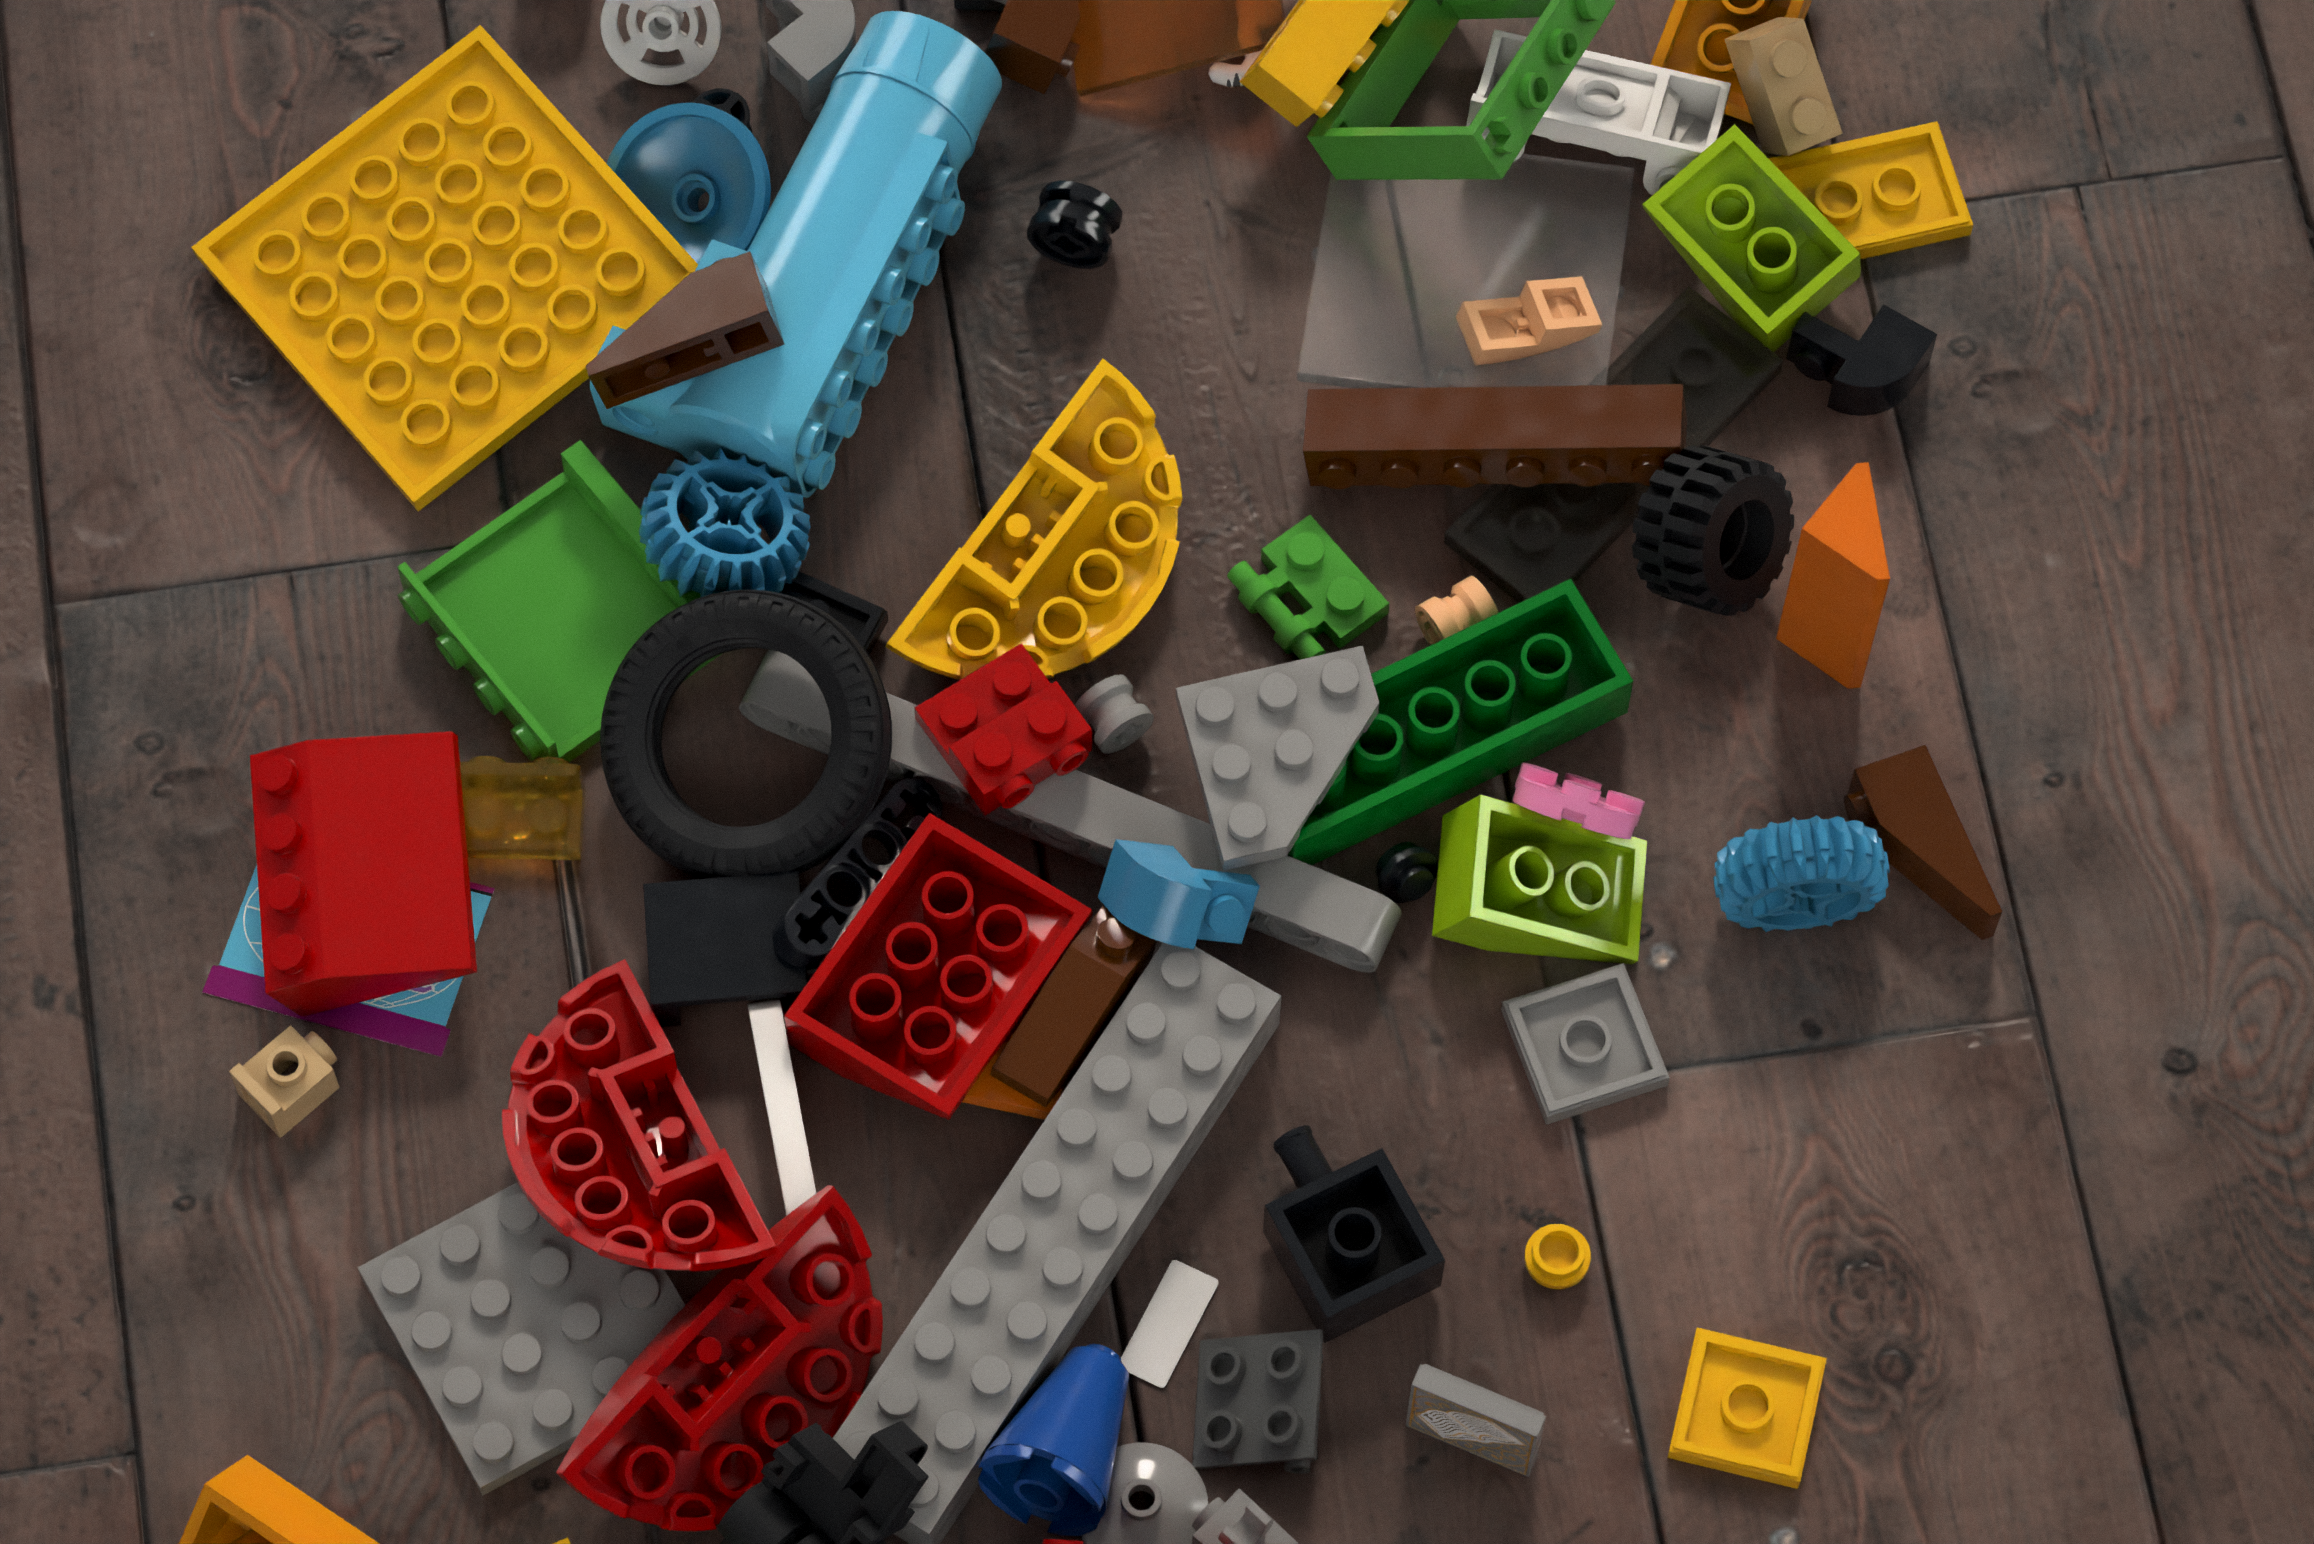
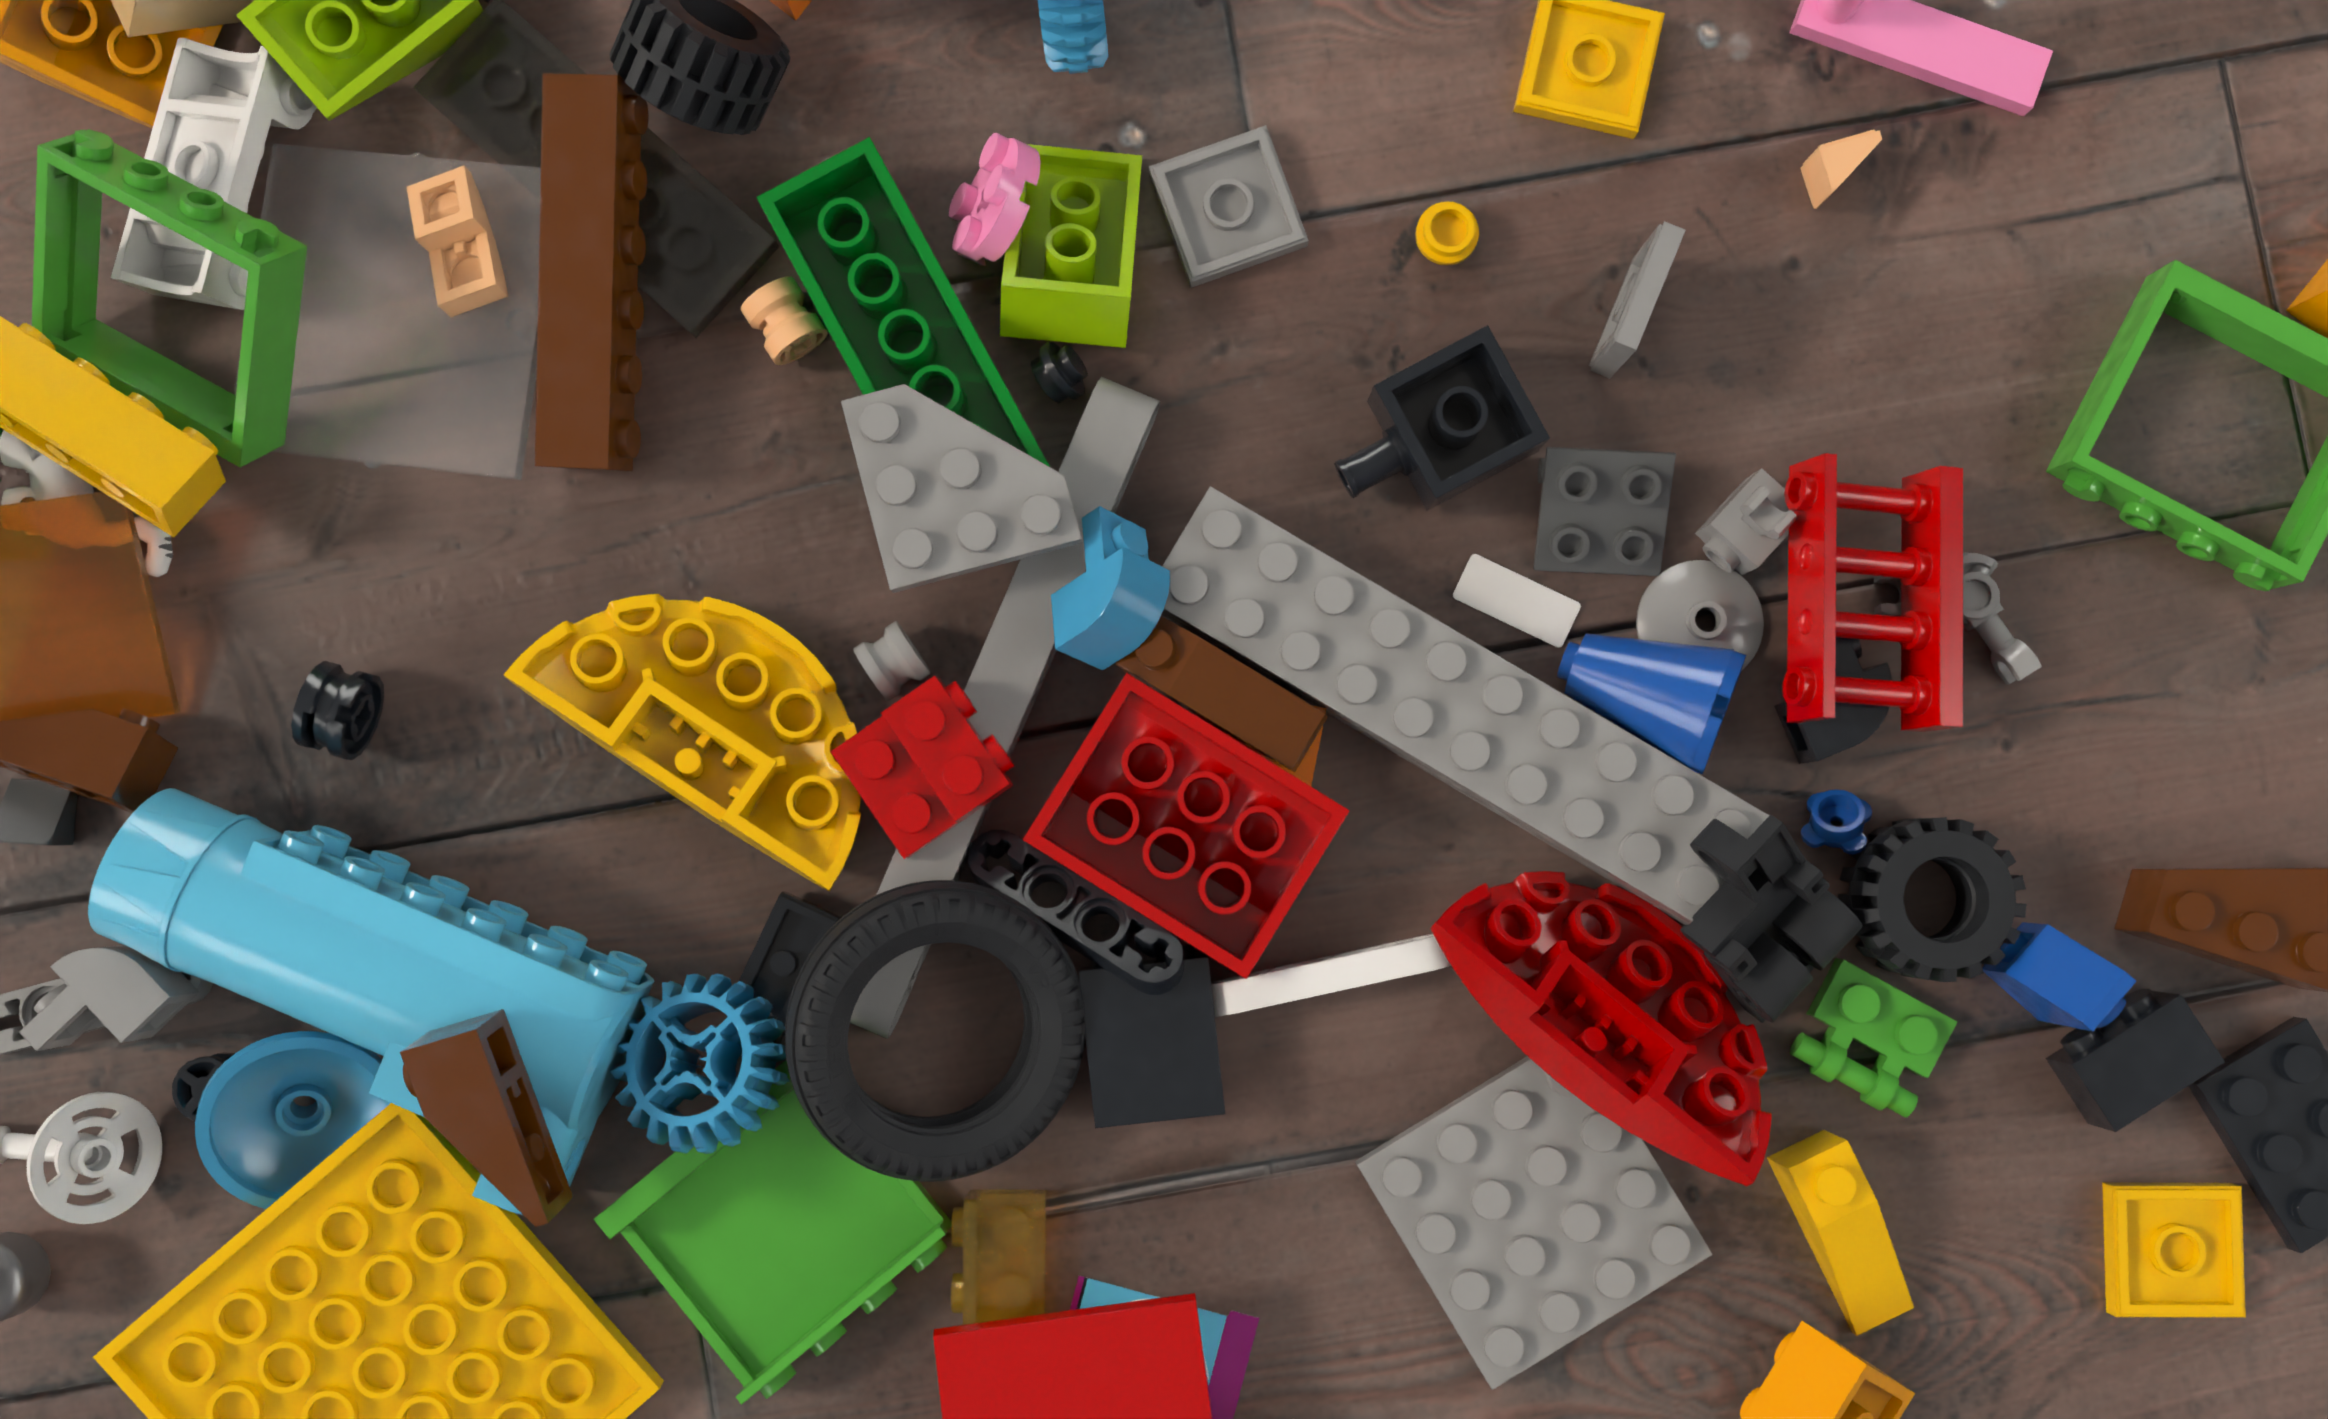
camera: 85 degrees left, 20 degrees up
(617, 1141) = (1380, 1138): red brick -> none
(1321, 580) = (740, 458): bright green plate -> none

